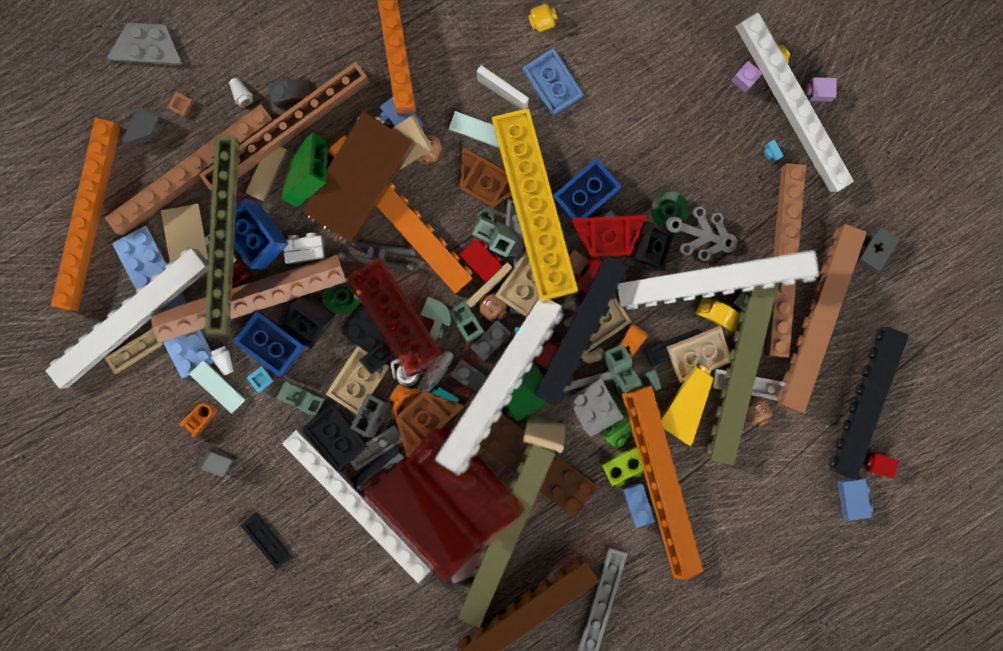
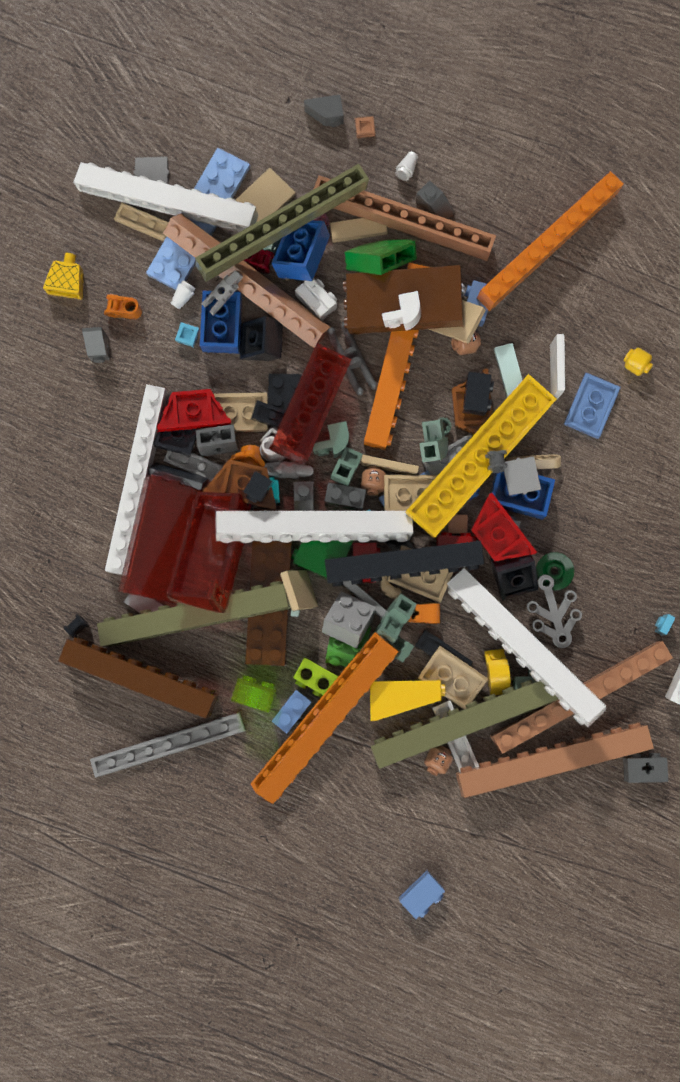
camera: 55 degrees right, 5 degrees down
(86, 214) = (226, 112): orange brick -> none
(92, 312) = (152, 167): none -> light grey piece
(139, 450) = (65, 278): none -> yellow torso
(145, 45) = (392, 69): light grey wing -> none
(182, 176) = (305, 164): nougat brick -> none
(217, 386) = (158, 304): light aqua tile -> none
(244, 317) = (230, 285): none -> light grey hinge
(266, 541) = (58, 427): black tile -> none
(300, 398) = (192, 371): sand green brick -> none
(331, 419) = (192, 411): none -> red wing
(332, 301) = (295, 345): dark green dish -> none
(376, 182) = (409, 313): none -> white brick
(438, 410) = (258, 487): none -> black brick
(447, 636) = (76, 626): none -> black bush
(480, 171) = (477, 394): none -> black brick
(480, 260) = (406, 443): red brick -> none
(549, 196) = (496, 461): none -> dark grey brick
(567, 164) = (542, 461): none -> tan beam
(574, 183) = (521, 476): none -> light grey piece
(604, 526) = (254, 694): none -> clear neon green brick
(868, 402) = (511, 850): black brick -> none
(881, 465) = (466, 898): red brick -> none

